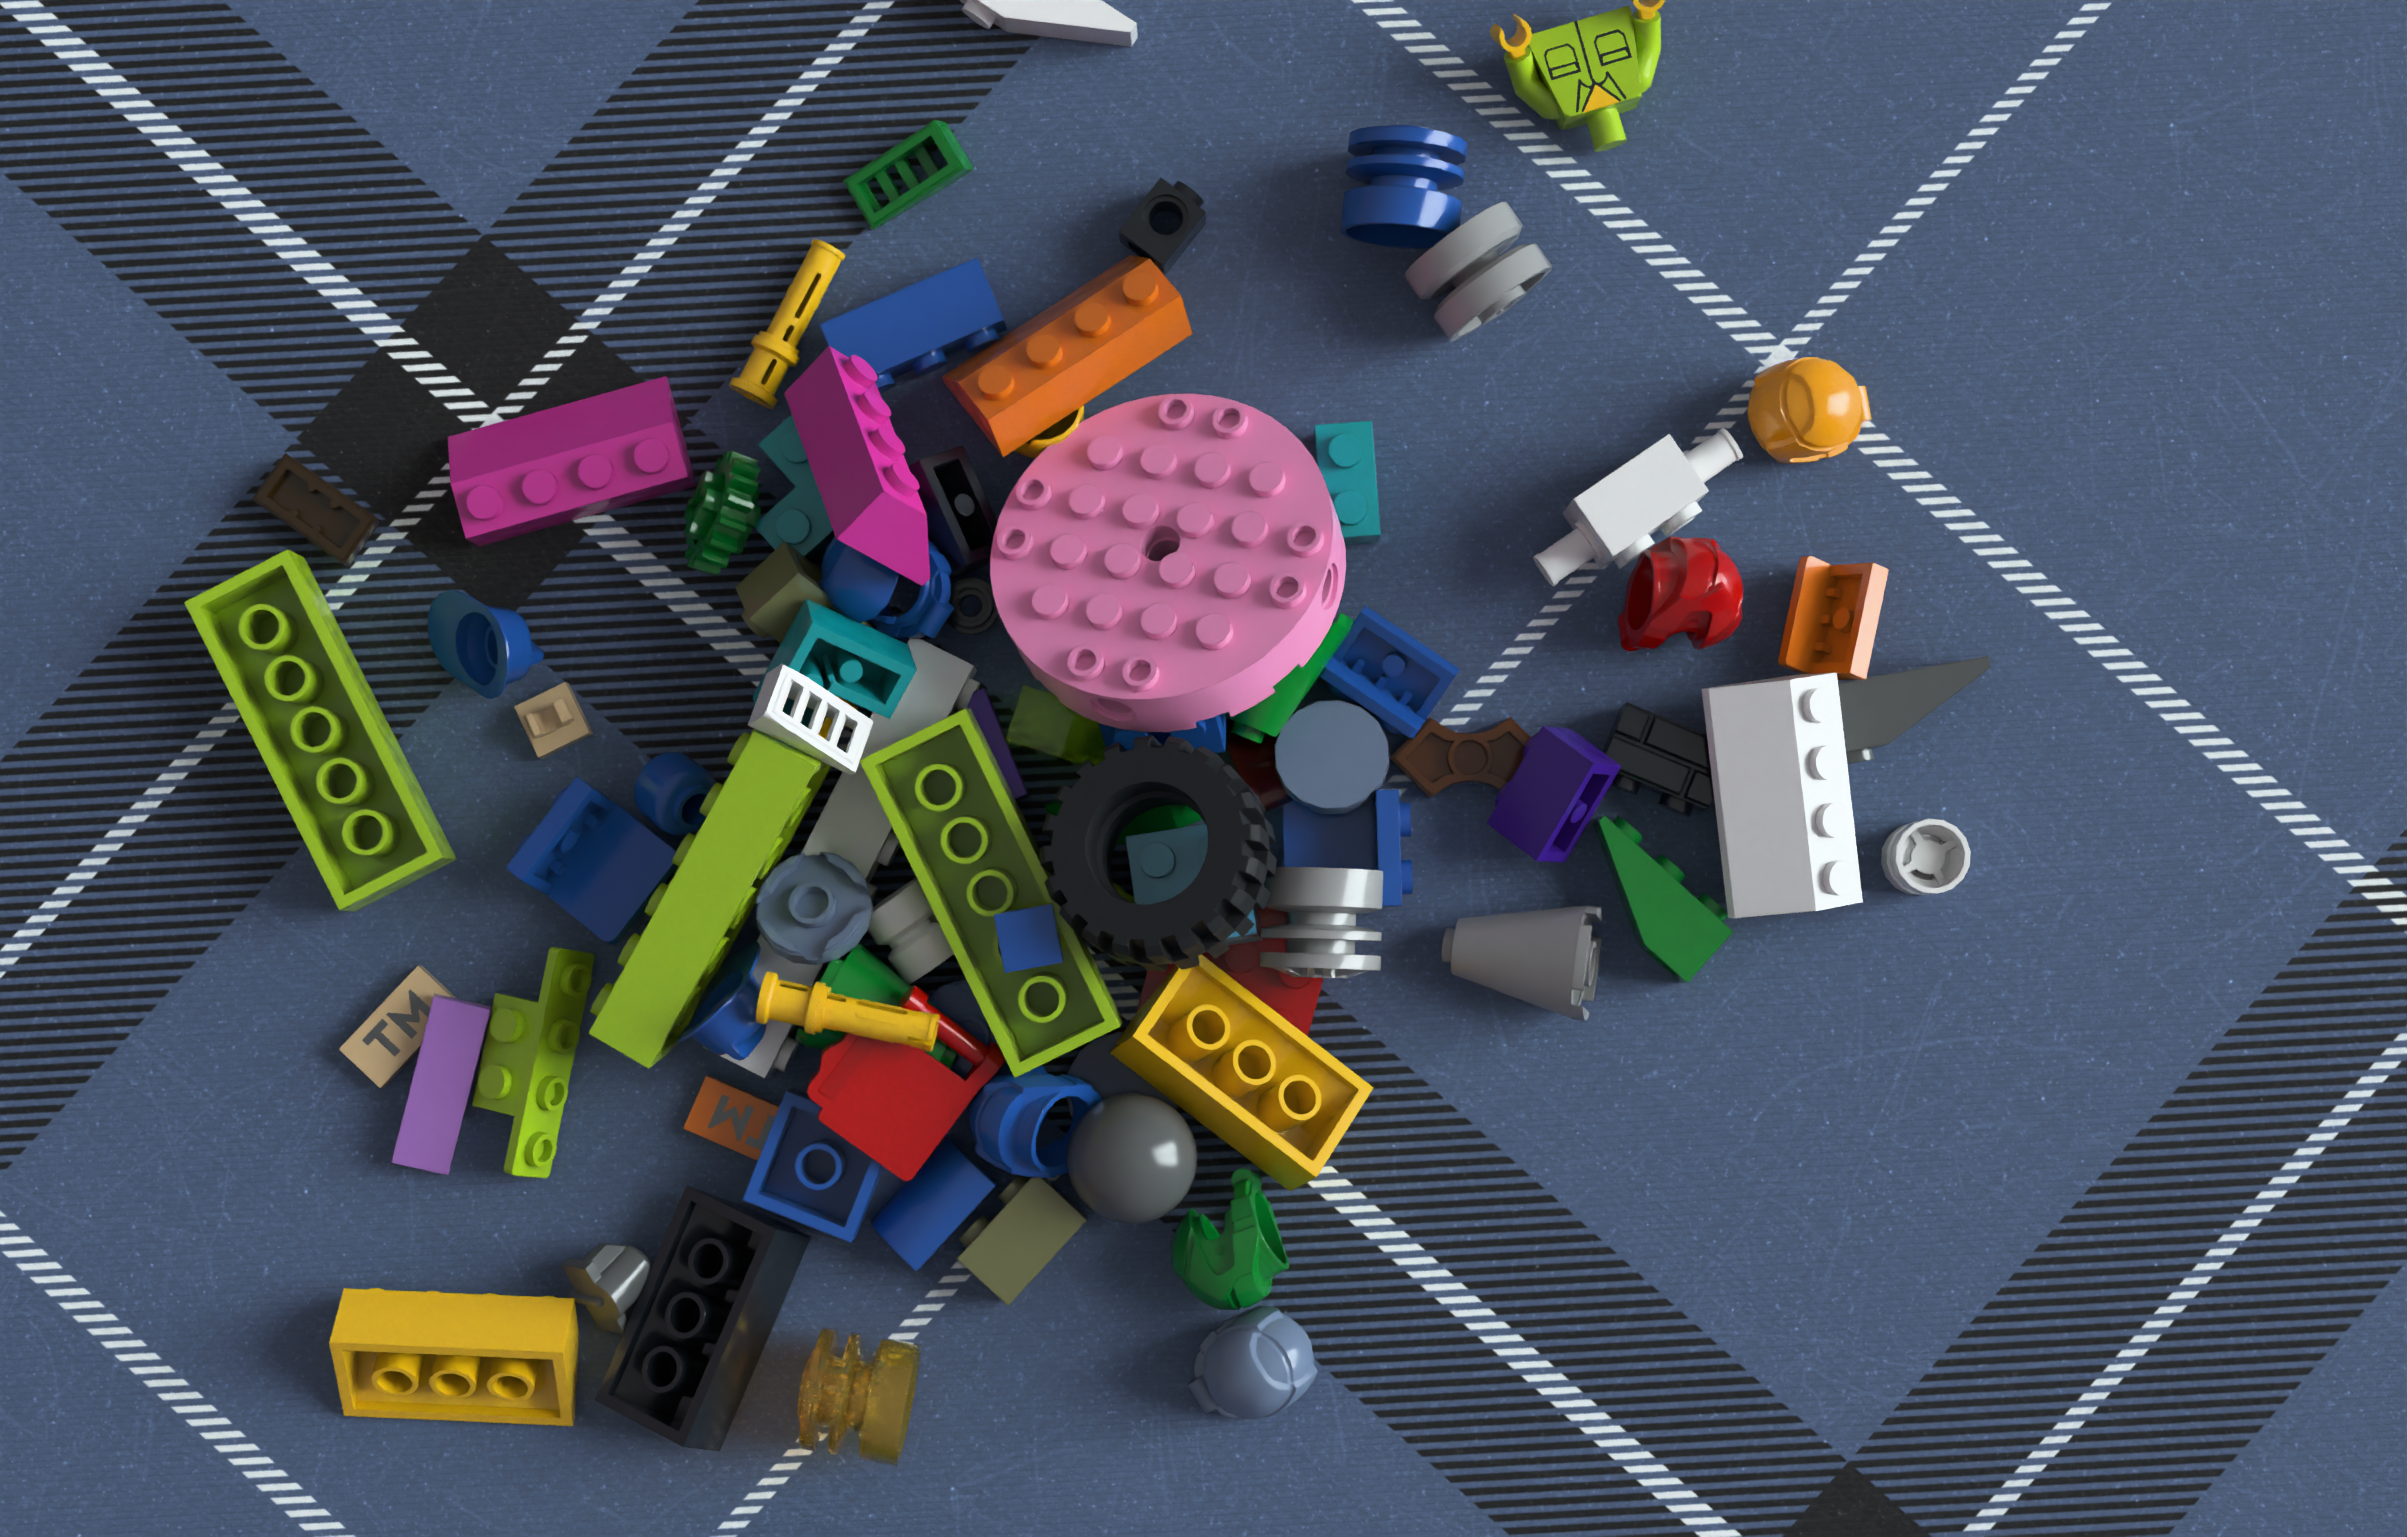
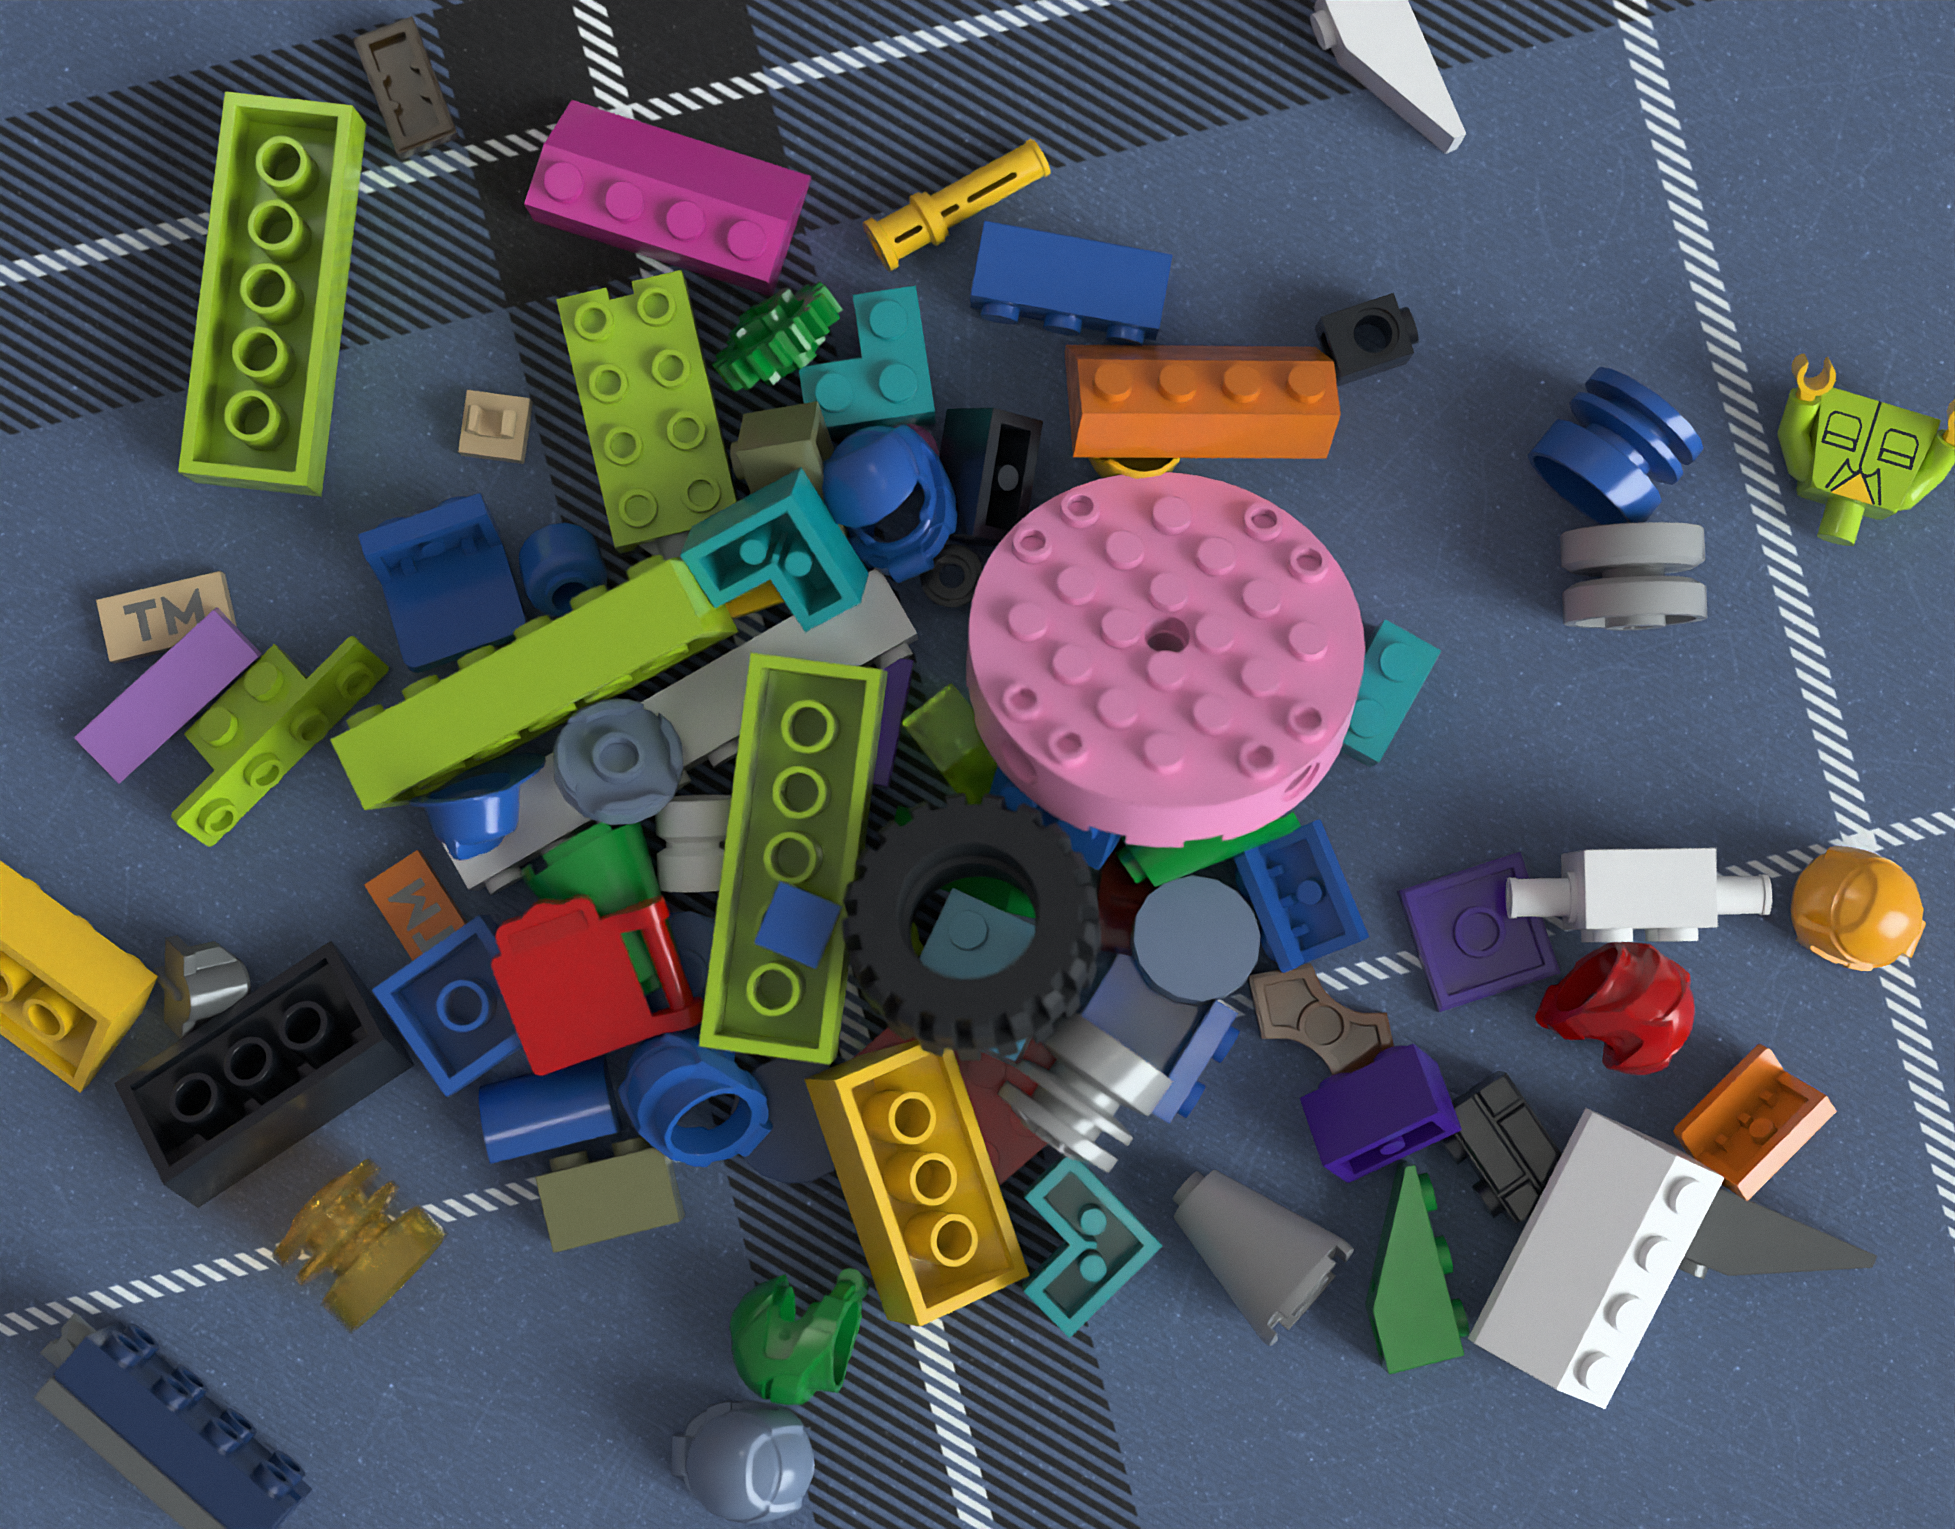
camera: 30 degrees right, 0 degrees up
(480, 642) = (475, 311): blue piece -> none
(662, 633) = (648, 412): none -> lime piece
(770, 719) = (691, 557): white slope -> none
(818, 1008) = (559, 861): yellow pin -> none
(860, 463) = (935, 375): dark pink slope -> none
(917, 144) = (1158, 158): green slope -> none
(1132, 1158) = (759, 1192): dark grey piece -> none
(1413, 1031) = (1100, 1249): none -> teal brick
(1533, 622) = (1467, 938): none -> dark purple tile
(1925, 857) = (1692, 1405): white wheel -> none

